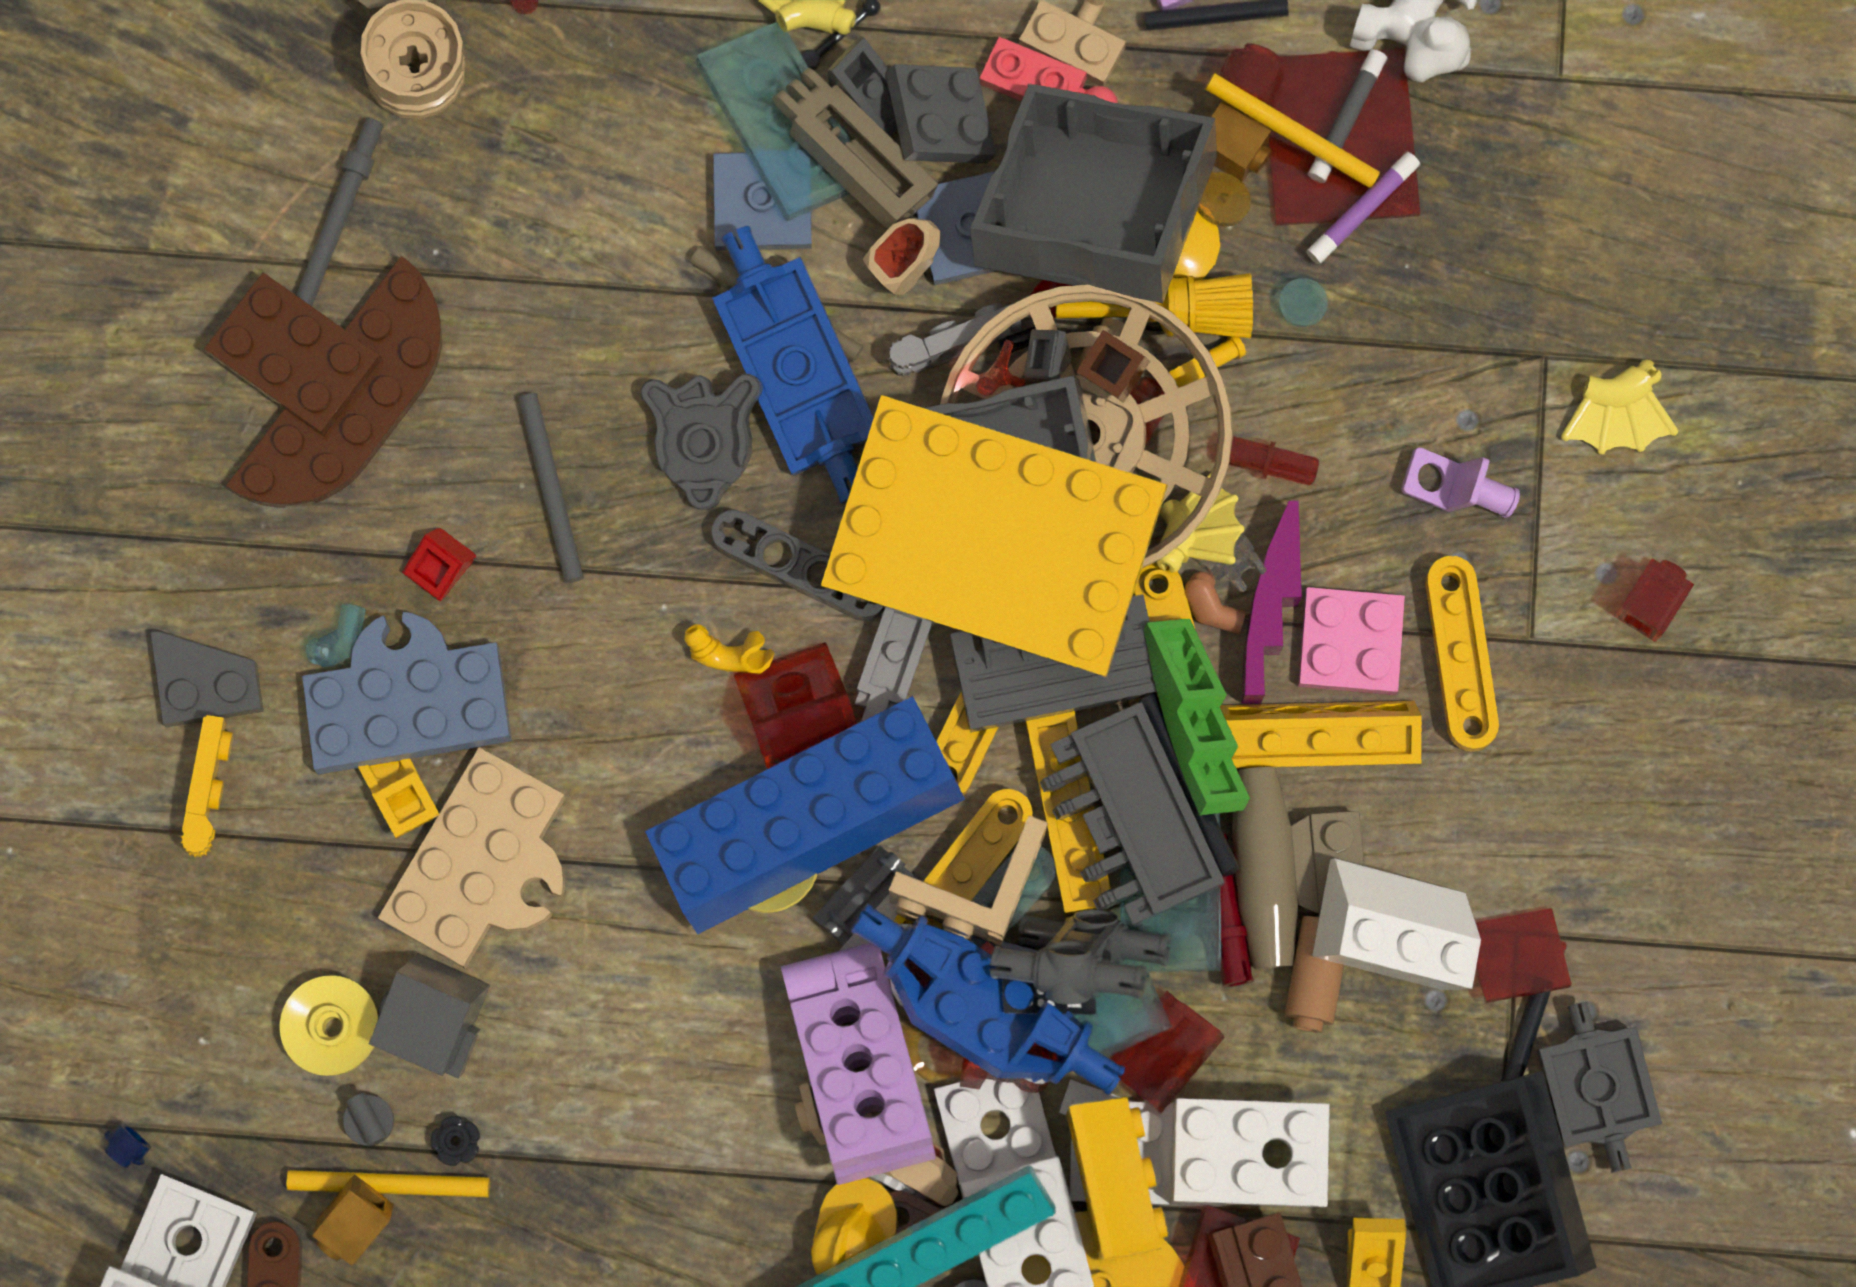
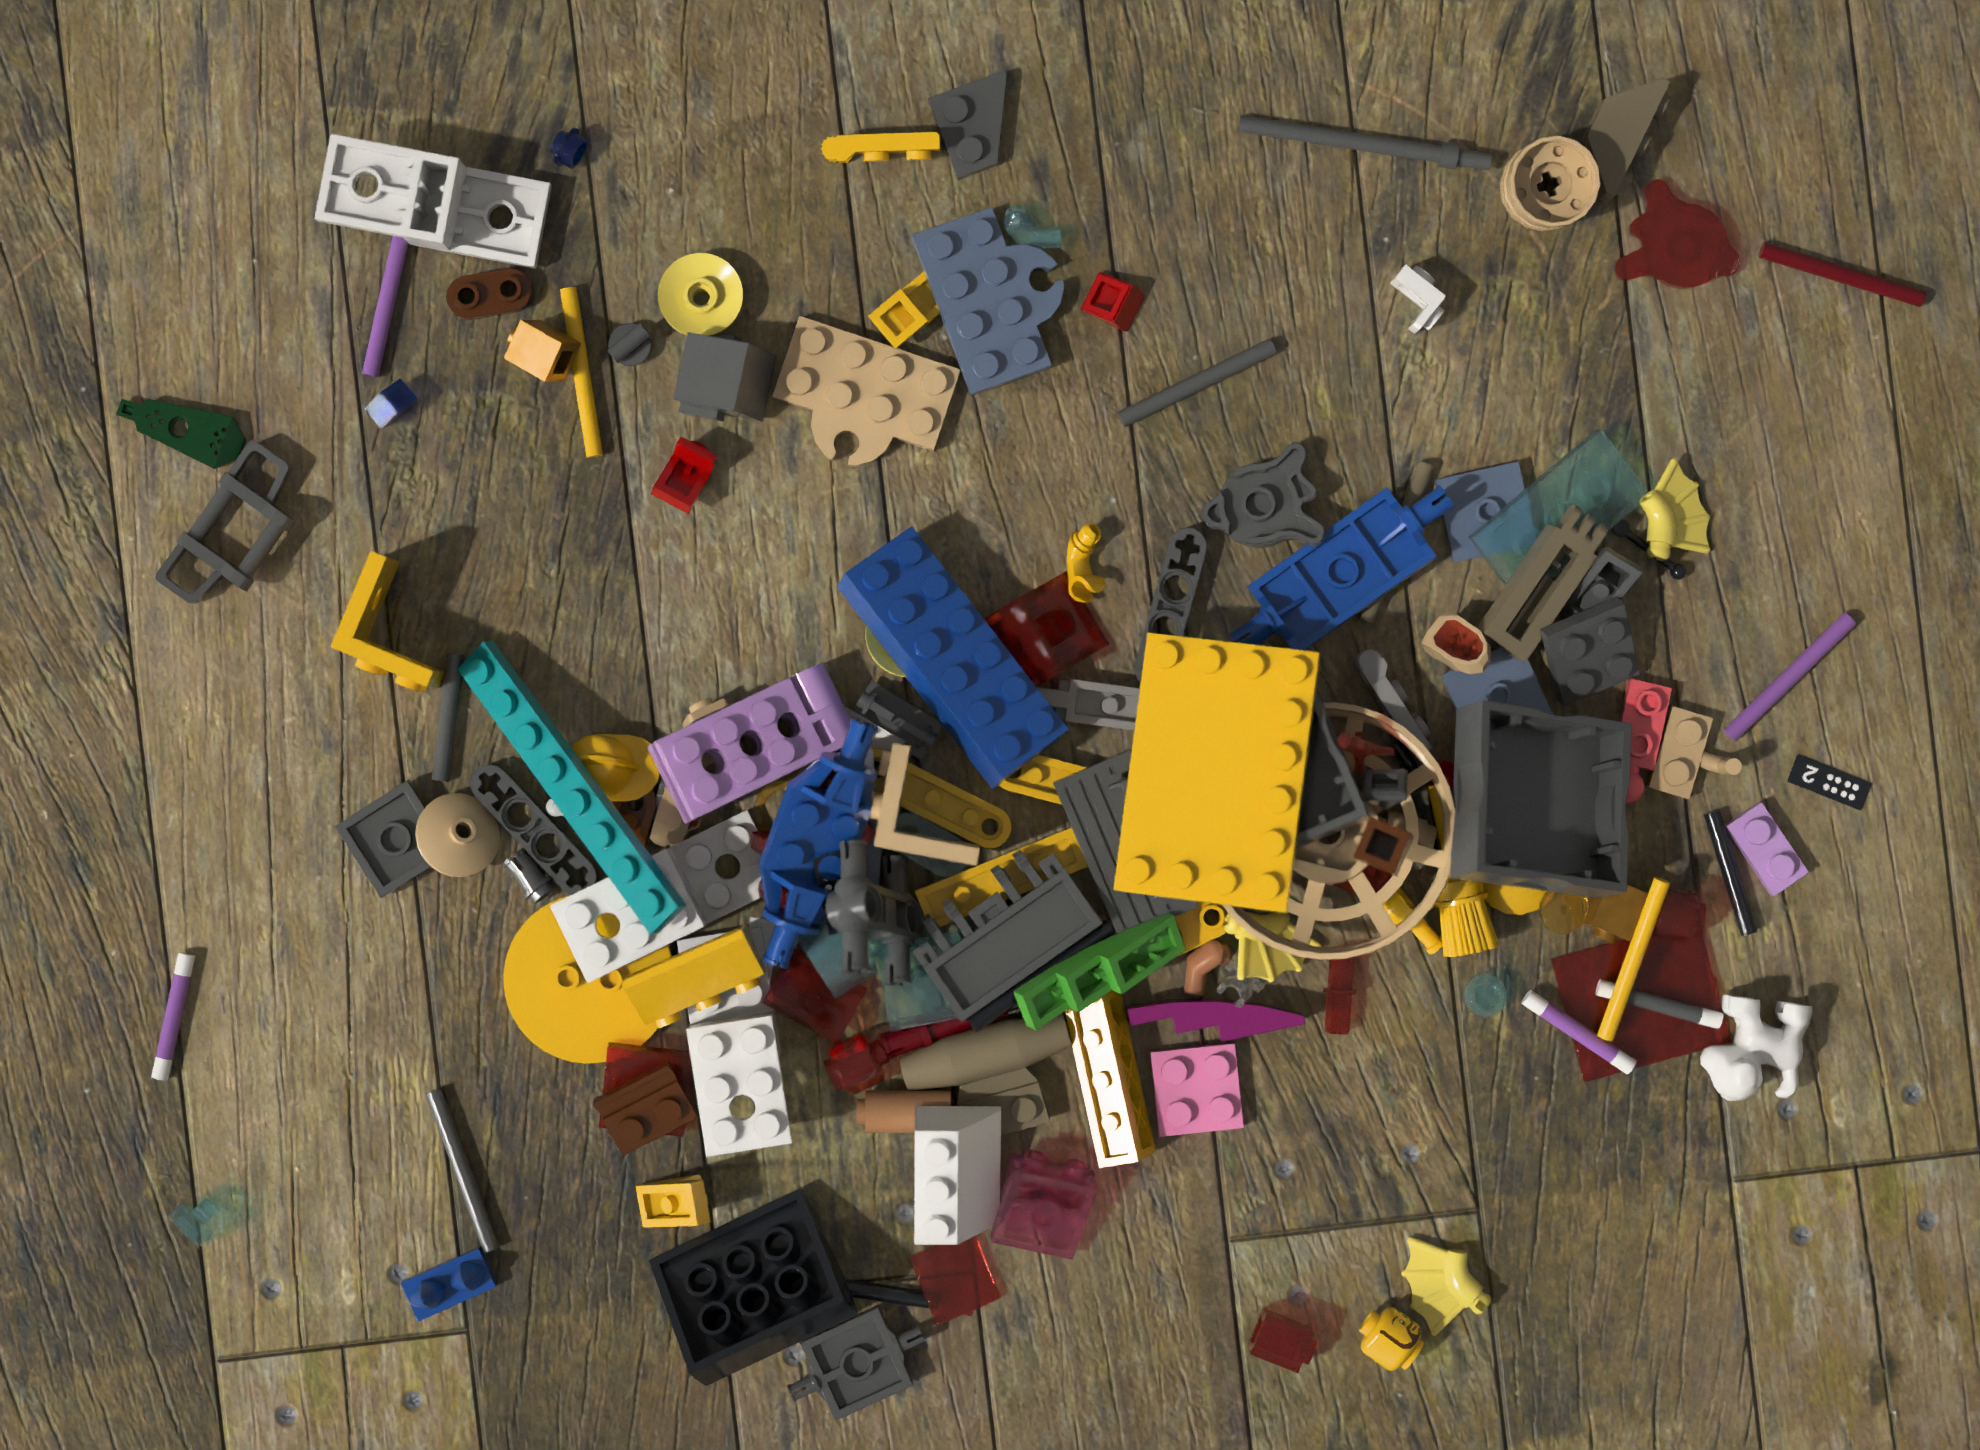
camera: 80 degrees right, 10 degrees up
(335, 384) = (1250, 179): reddish brown plate -> none
(468, 1135) = (615, 418): black plate -> none
(498, 223) = (1419, 288): none -> white bracket
(532, 1083) = (685, 474): none -> red bracket
(1251, 1019) = (856, 1063): none -> clear red head
(1452, 834) = (1044, 1204): none -> clear pink plate
(1460, 486) = (1349, 1159): lavender bracket -> none
(1462, 653) = (1203, 1185): yellow plate -> none
(1673, 476) = (1391, 1339): none -> yellow head

